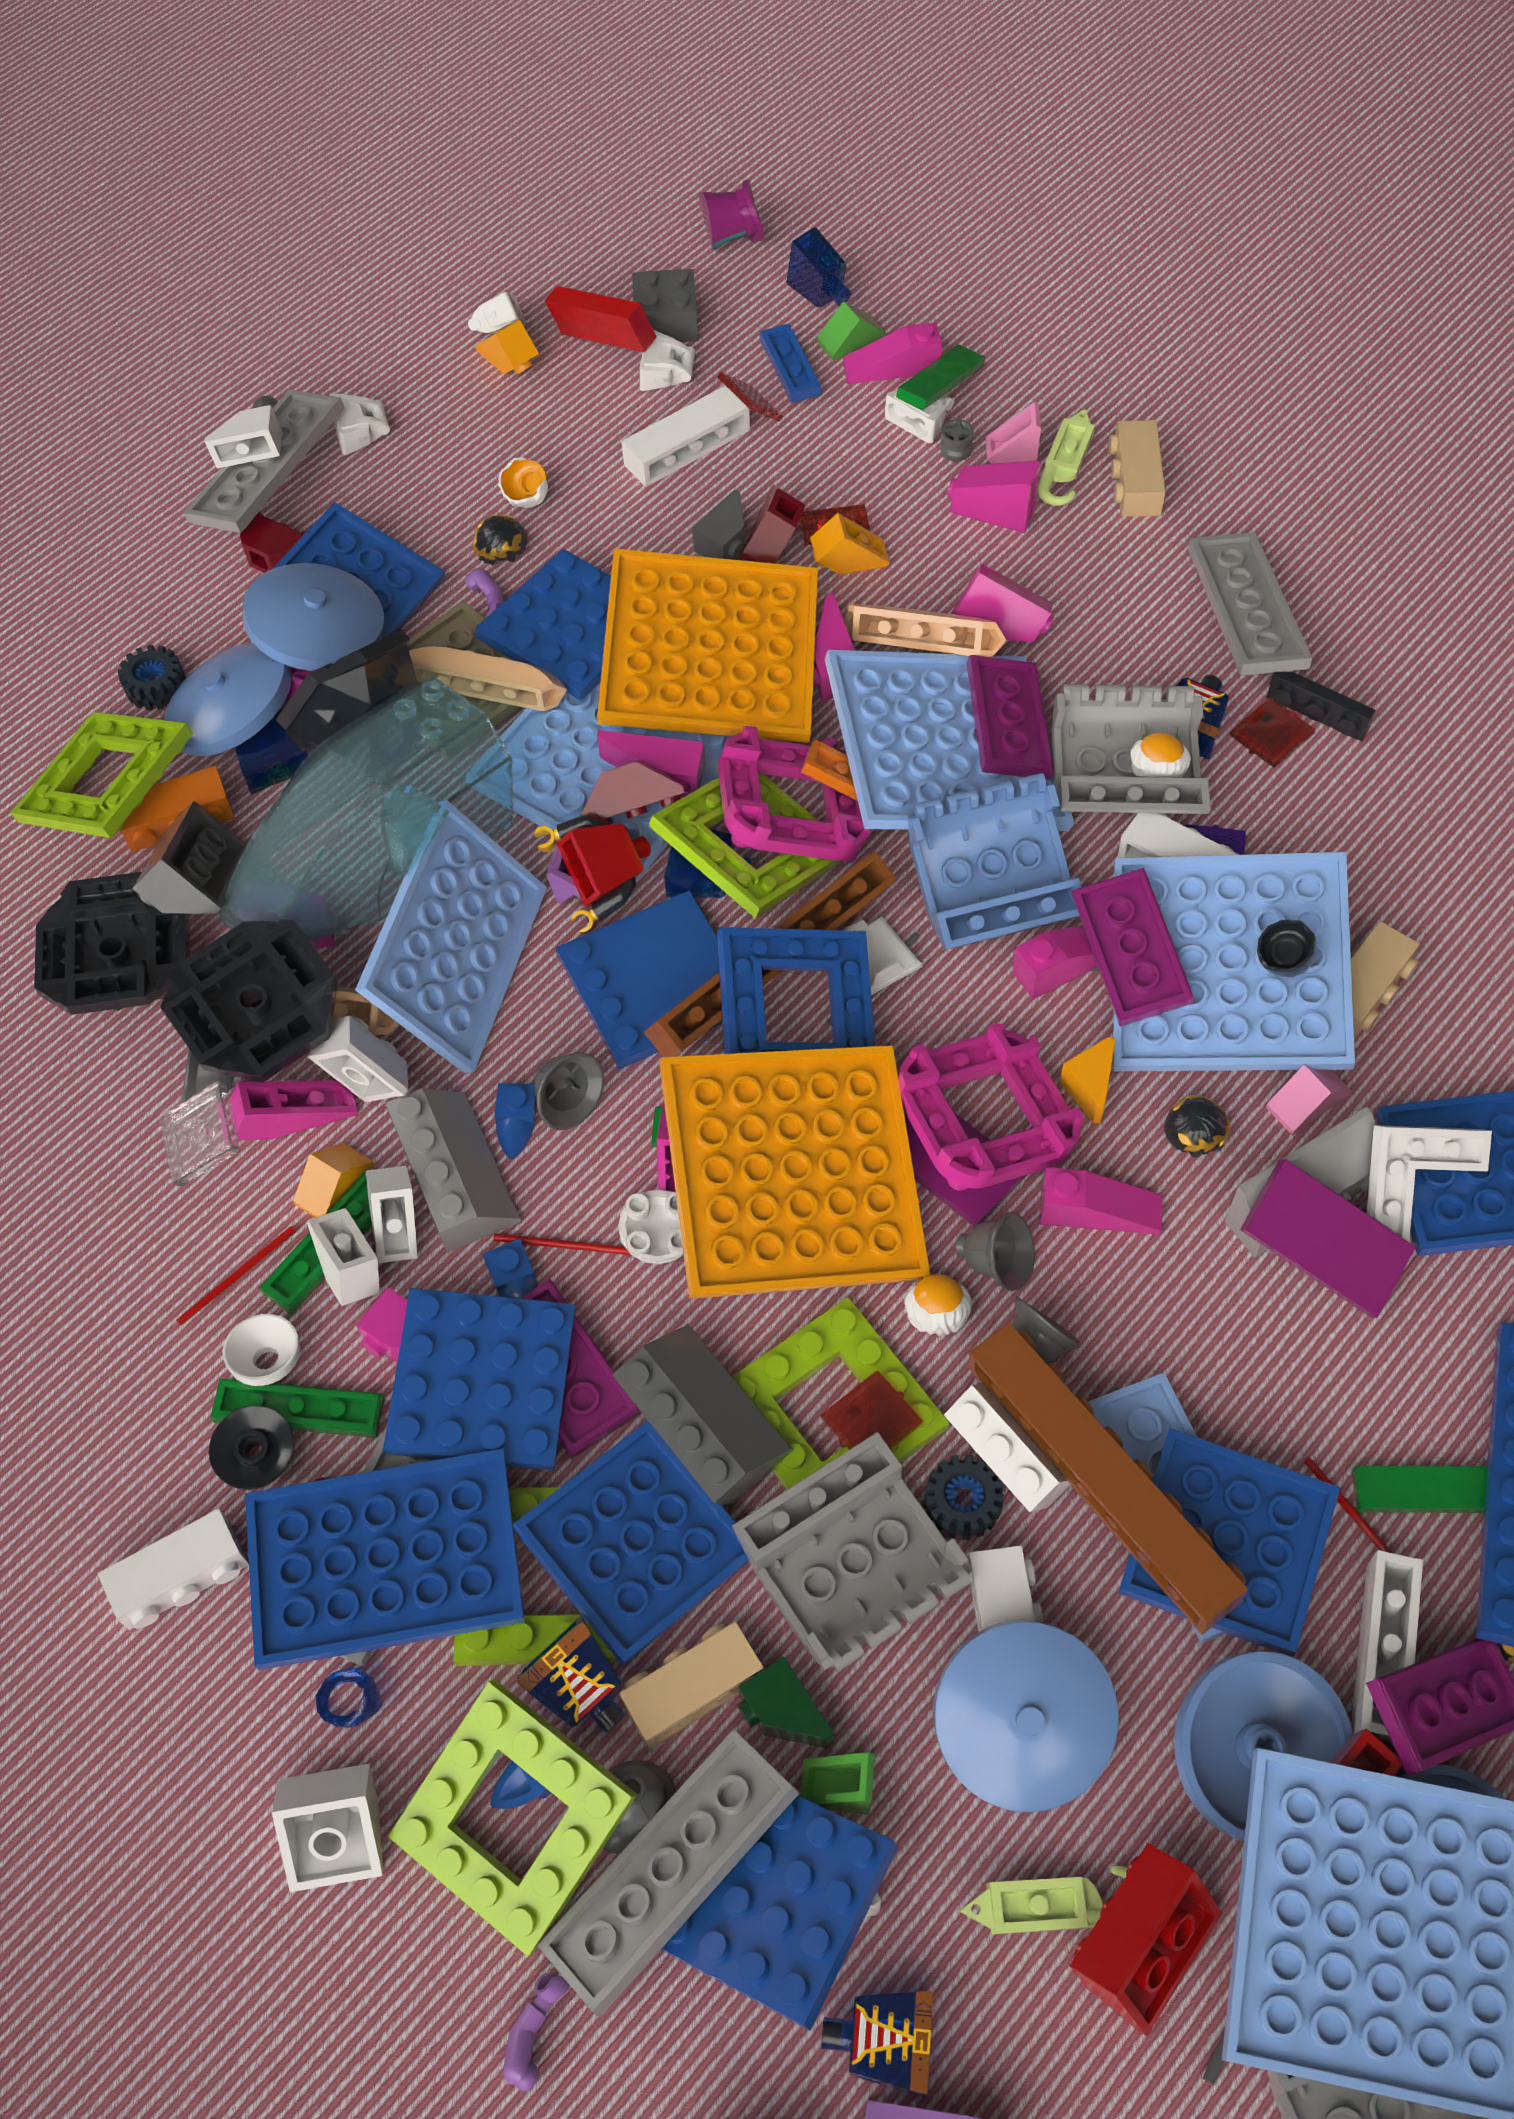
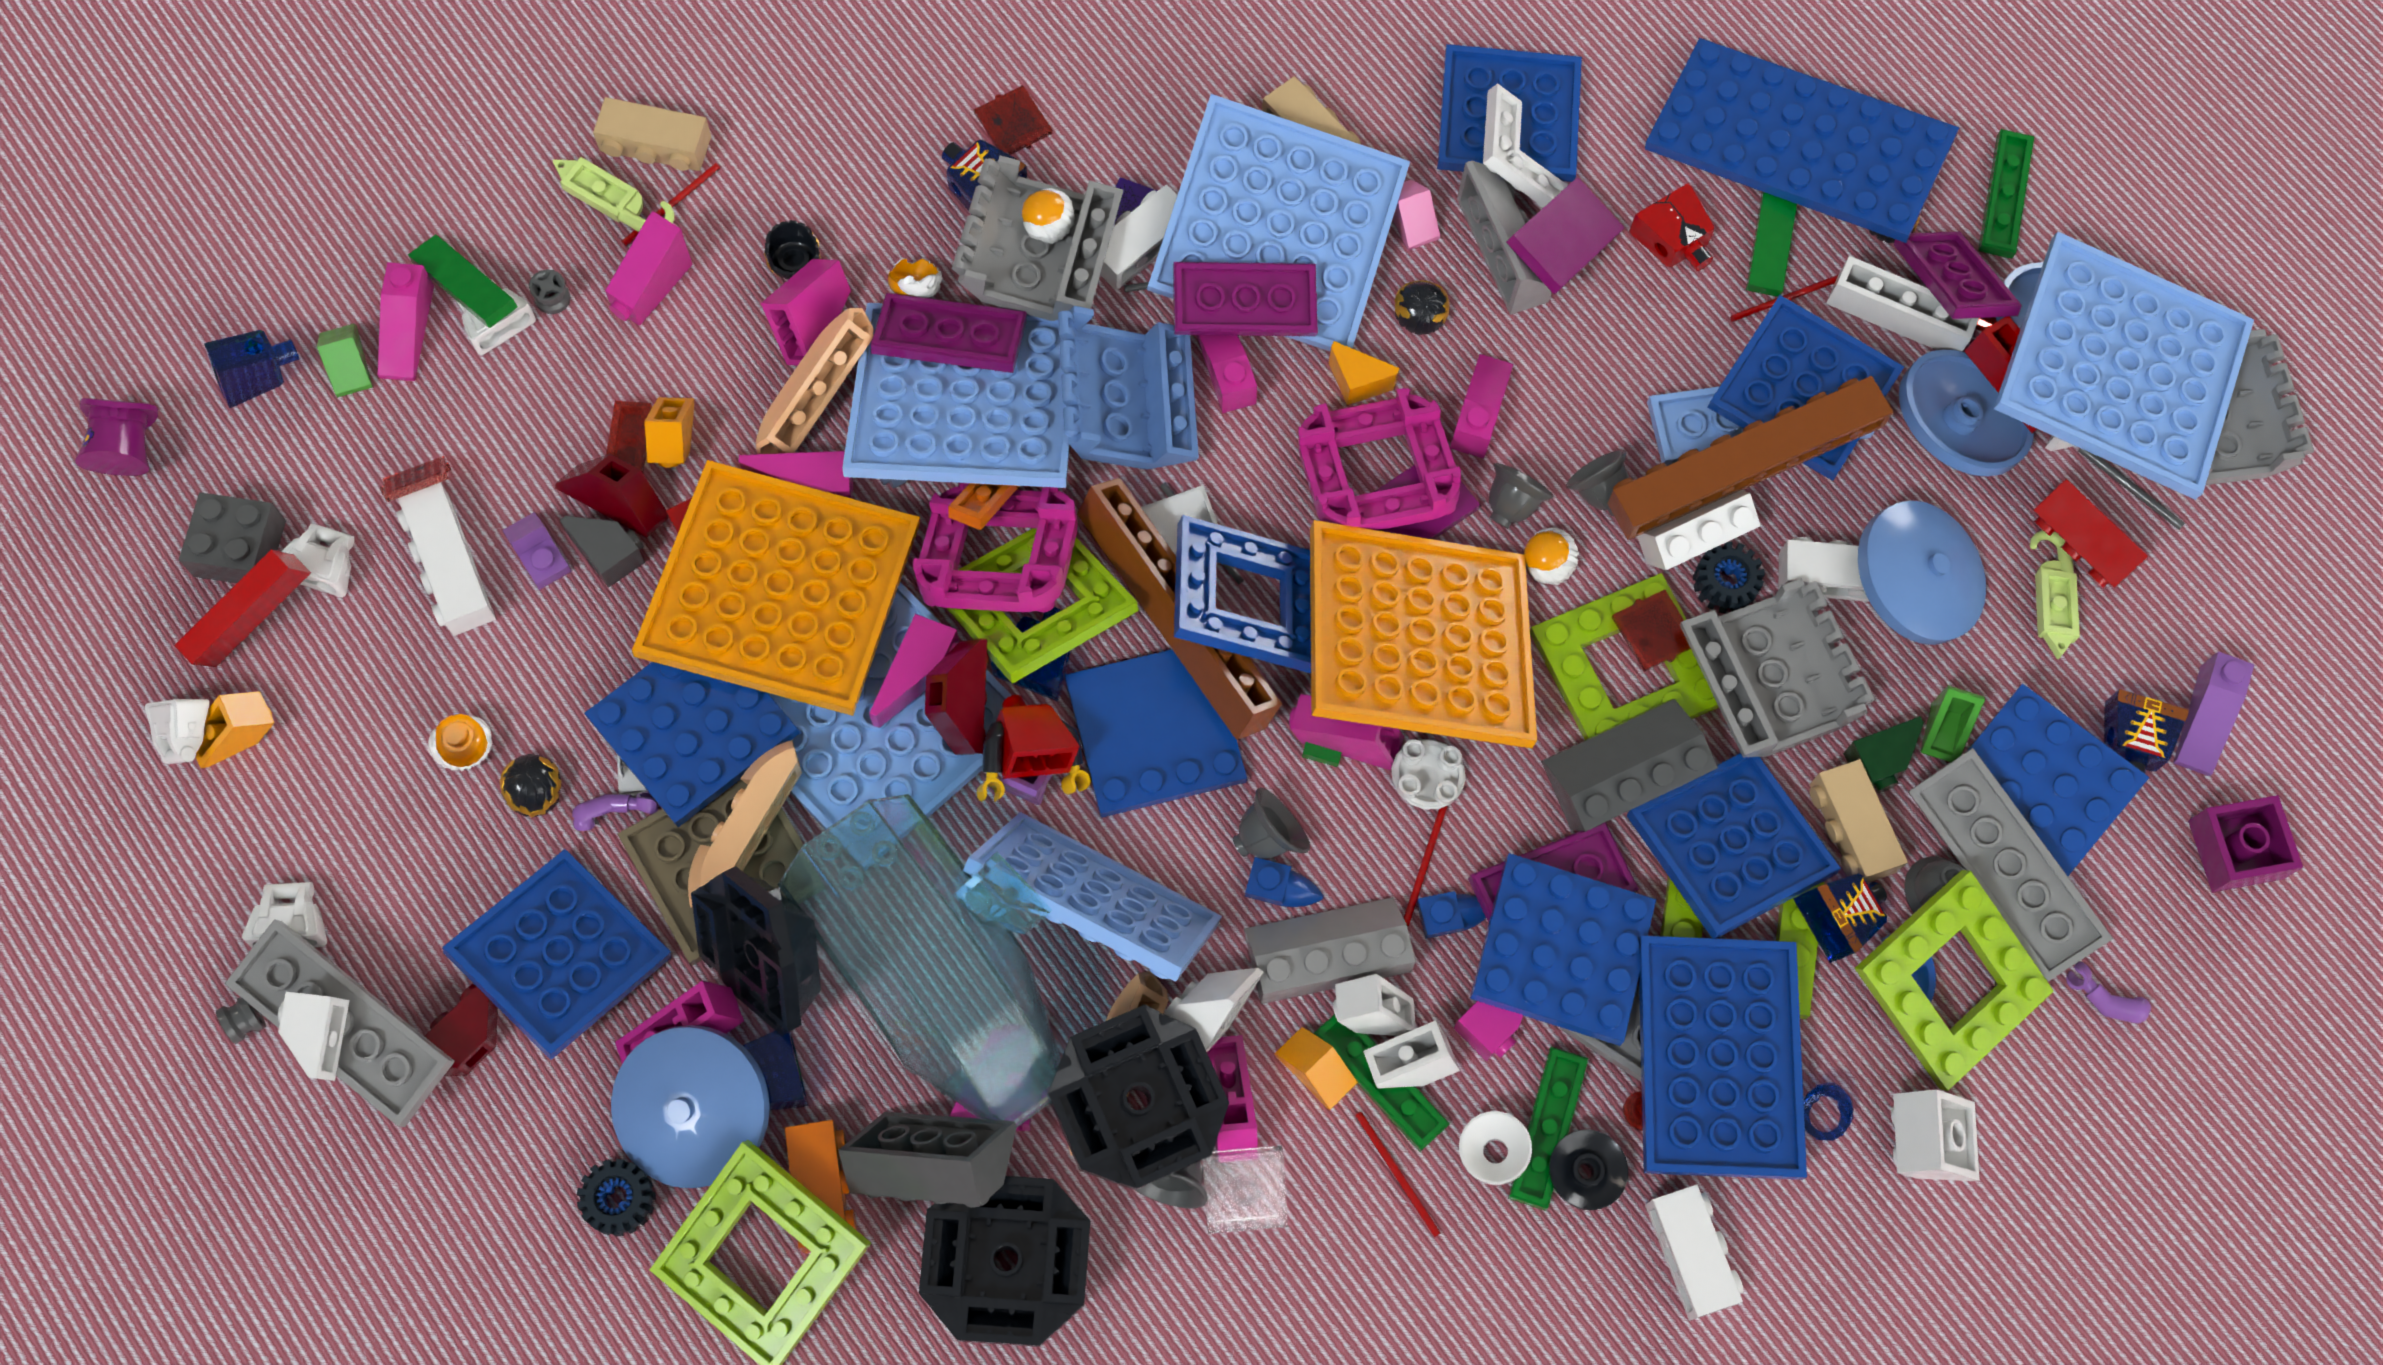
camera: 85 degrees left, 10 degrees up
(311, 614) = (616, 990): medium blue dish -> none
(715, 486) = (537, 550): none -> medium lavender slope
(790, 363) = (370, 429): blue plate -> none
(1016, 439) = (571, 233): bright pink slope -> none
(1053, 677) = (915, 278): none -> hair
(1060, 585) = (790, 248): none -> black hair
(1095, 510) = (680, 196): none -> red axle
(1249, 604) = (869, 89): light grey plate -> none
(1287, 948) = (1300, 170): black hair -> none
(1321, 704) = (1000, 70): black plate -> none
(1397, 1371) = (1675, 229): none -> red torso

